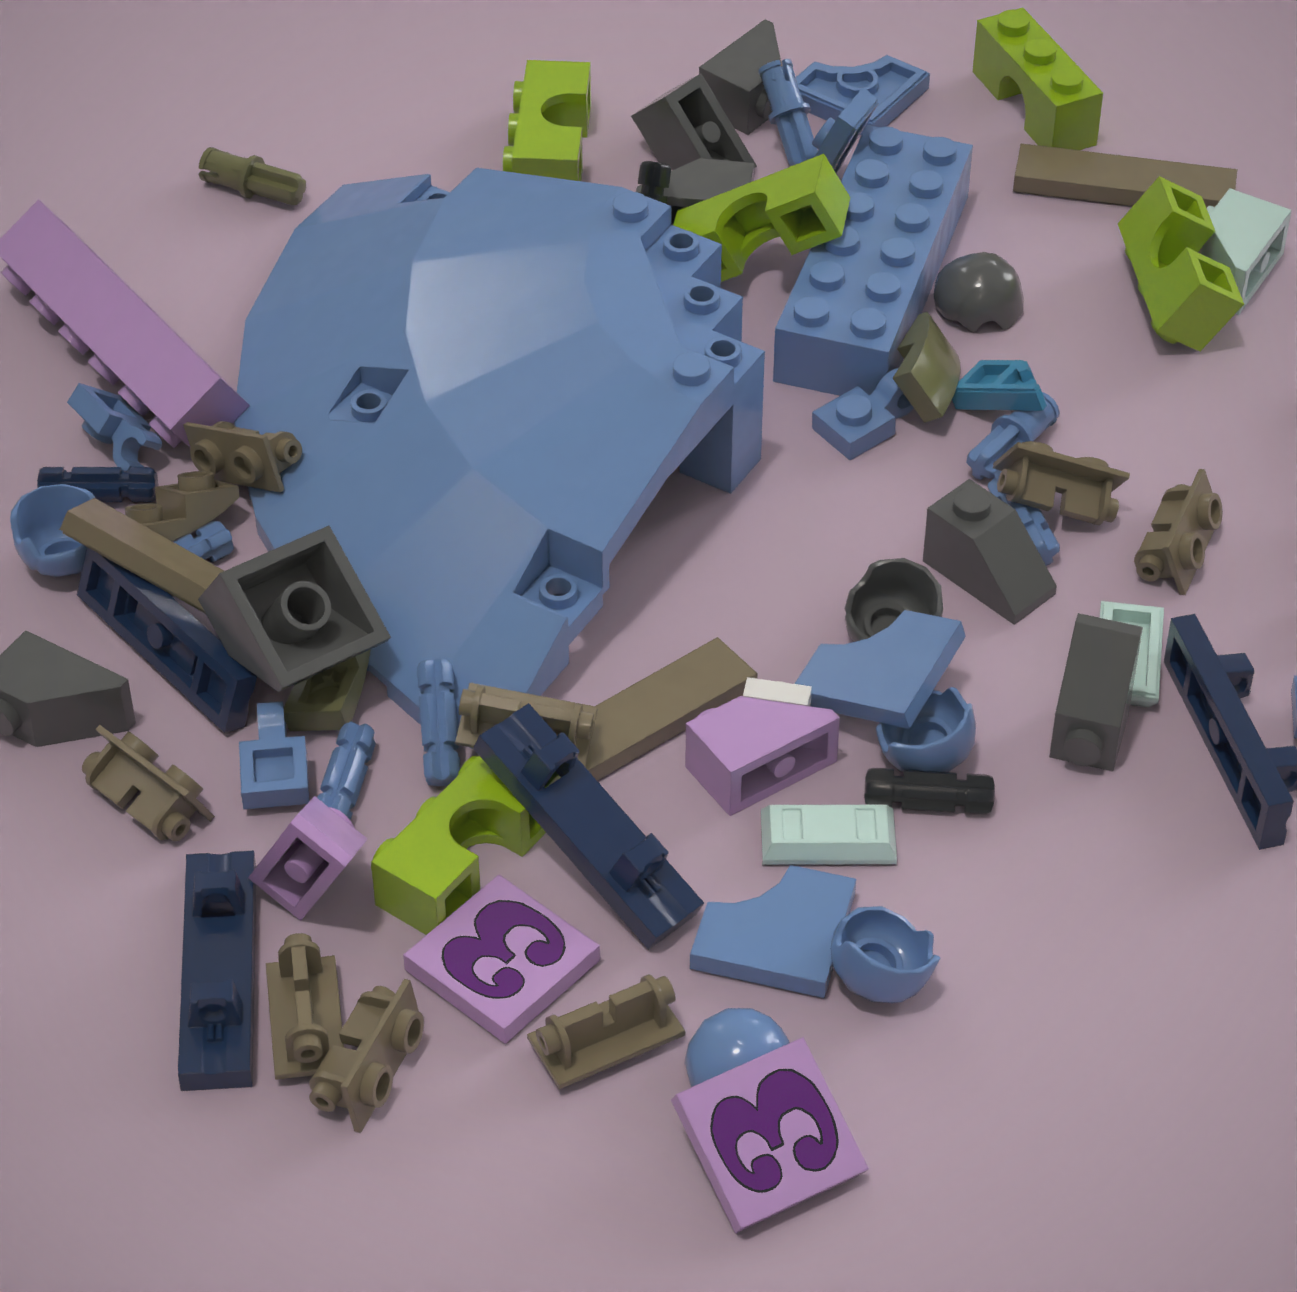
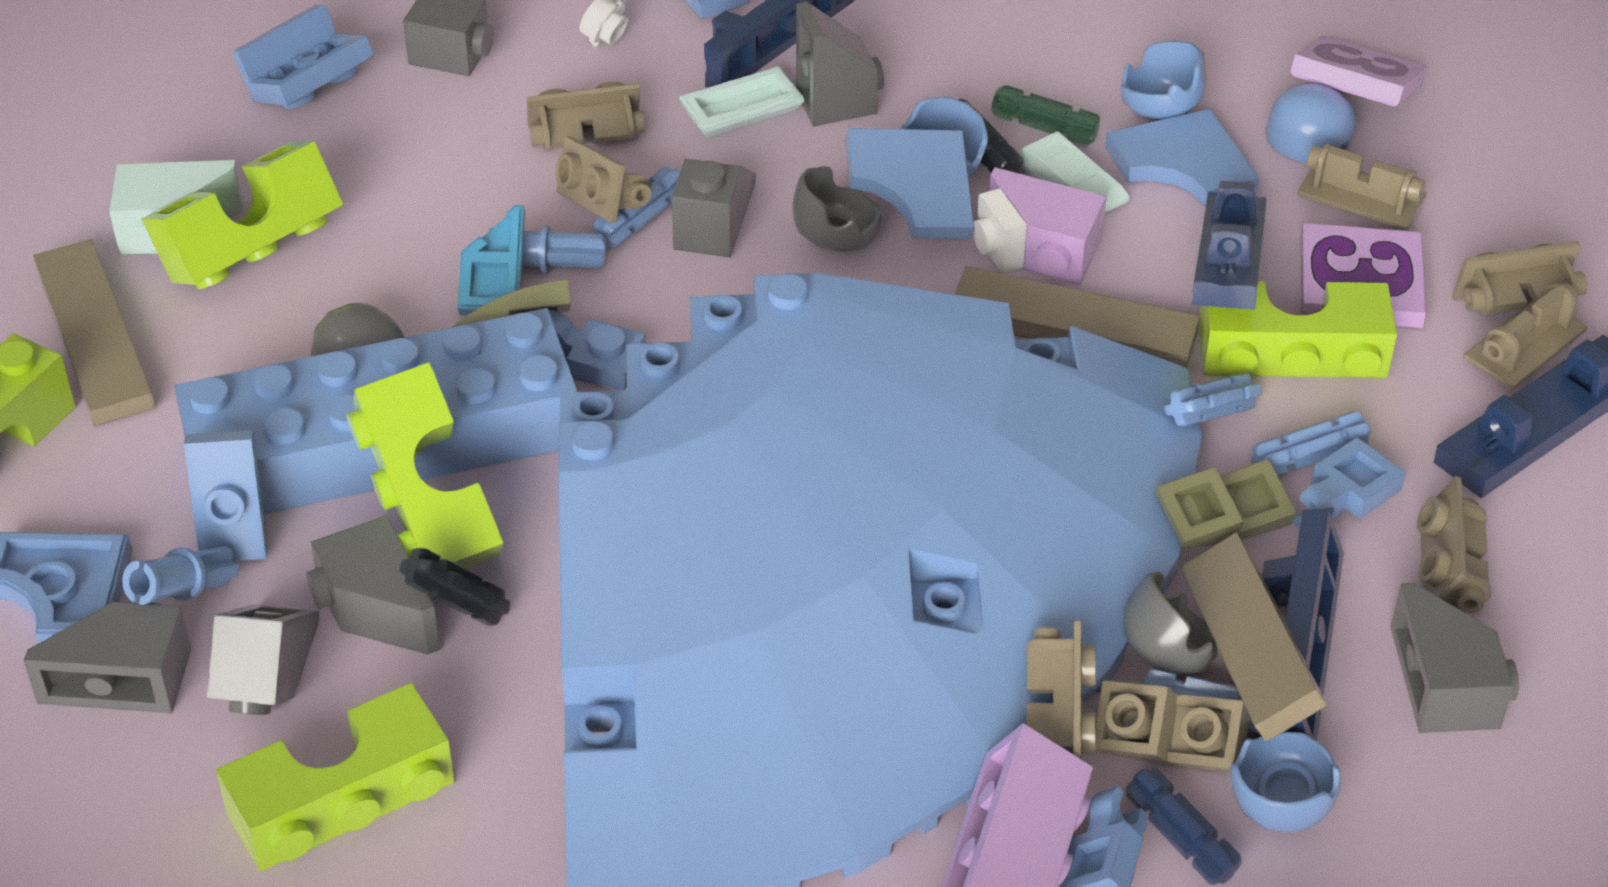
camera: 125 degrees left, 0 degrees up
(239, 534) = (1166, 630): none -> dark grey hair
(293, 611) = (1242, 492): dark grey slope -> none
(308, 857) = (1425, 370): lavender slope -> none
(487, 706) = (1173, 327): dark tan hinge -> none
(927, 857) = (1045, 114): none -> clear green axle

